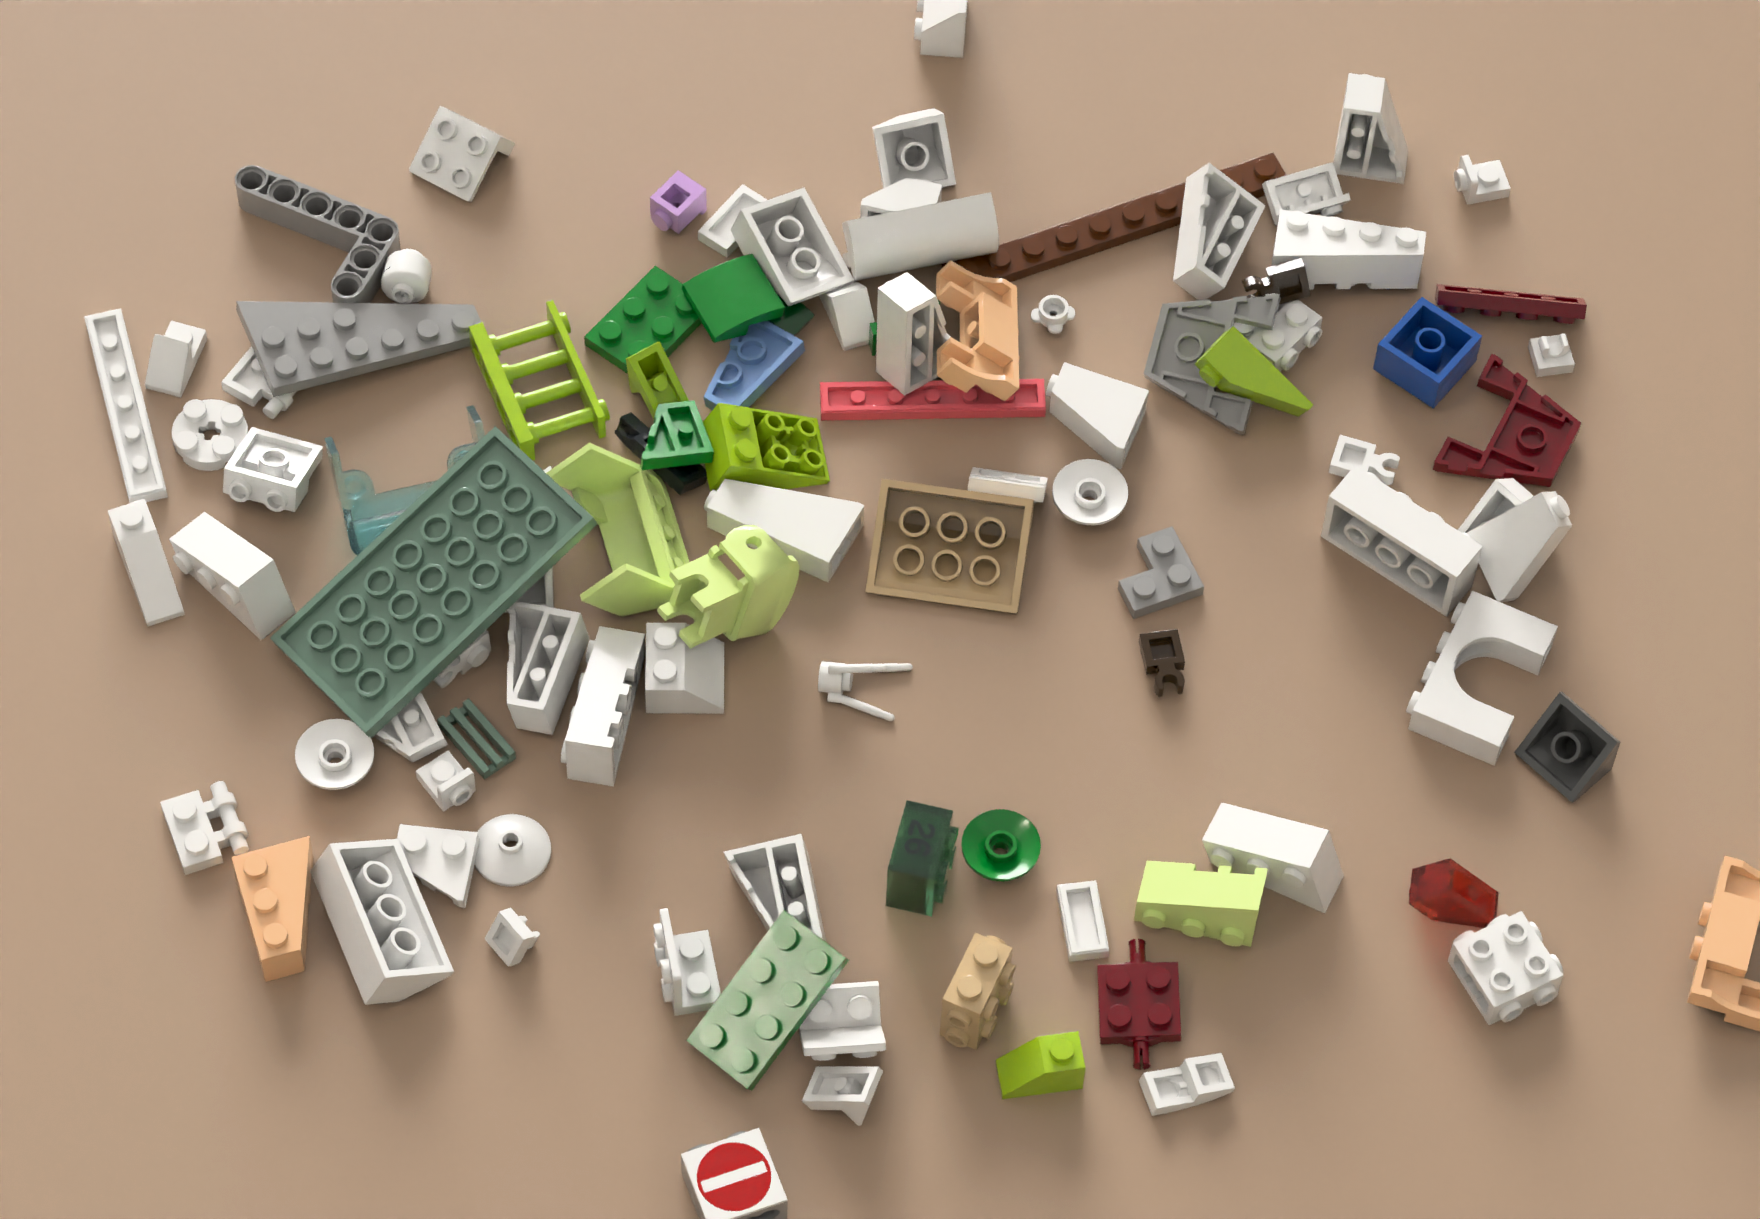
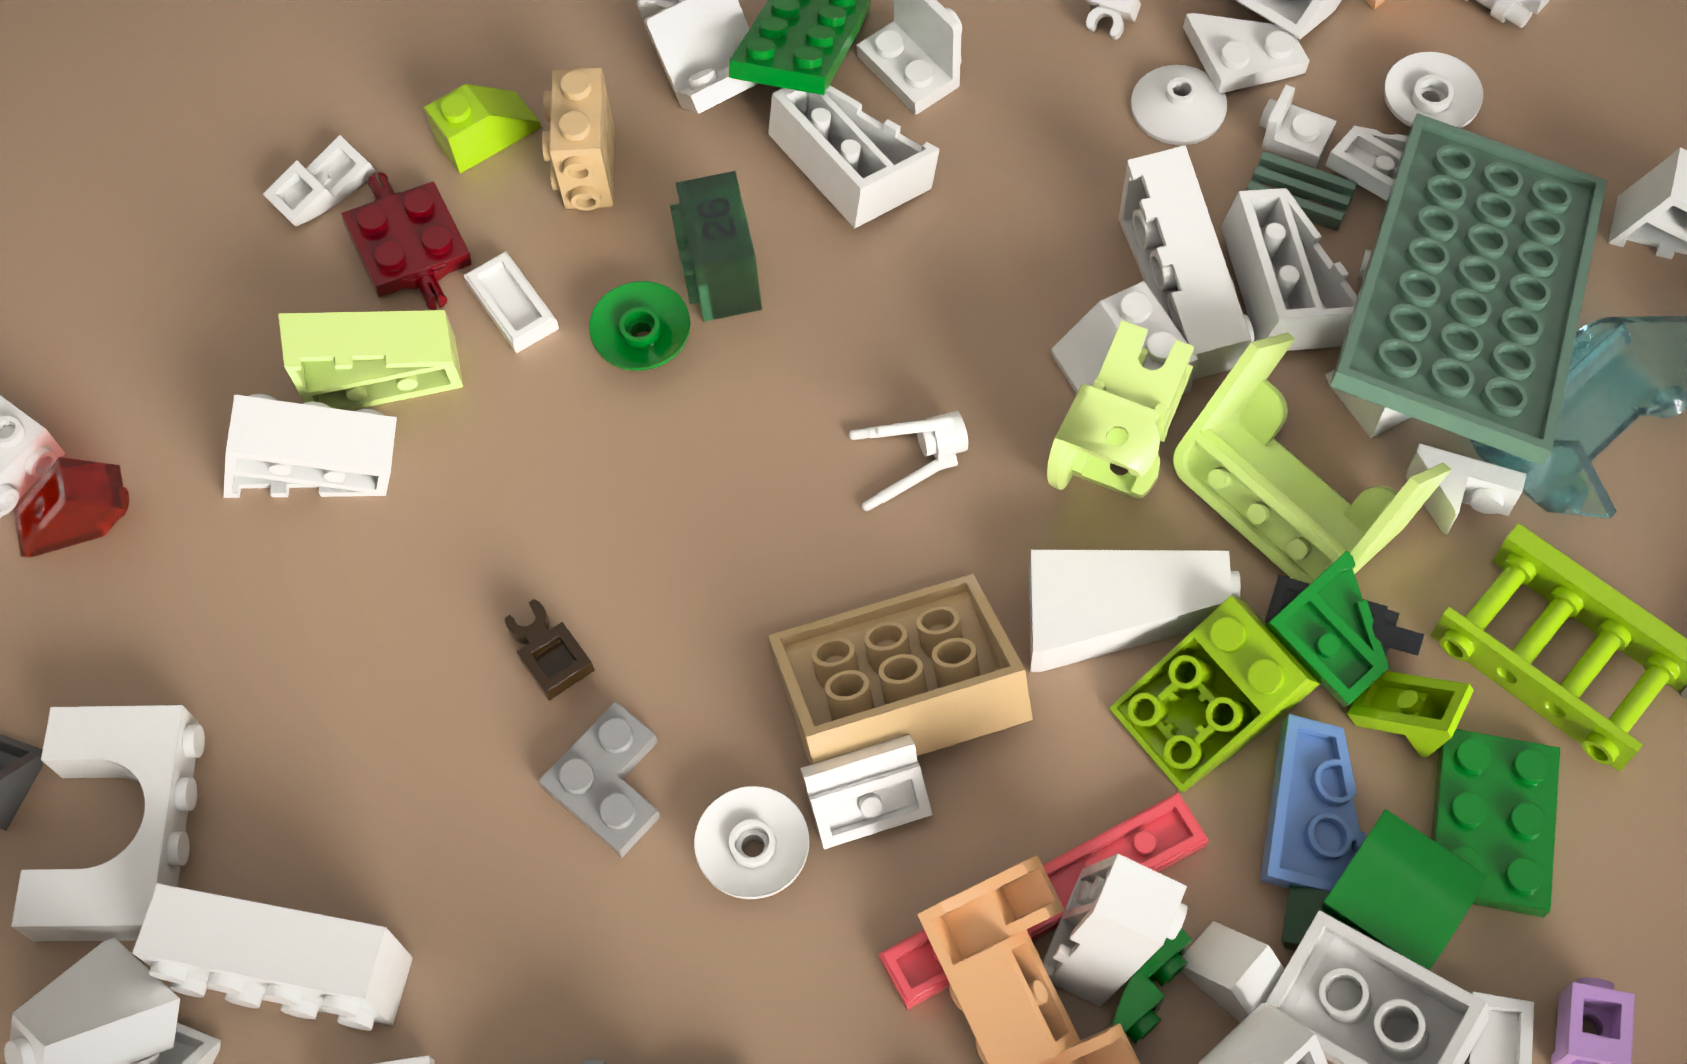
camera: 160 degrees right, 5 degrees up
(1098, 410) = (801, 982): white slope -> none

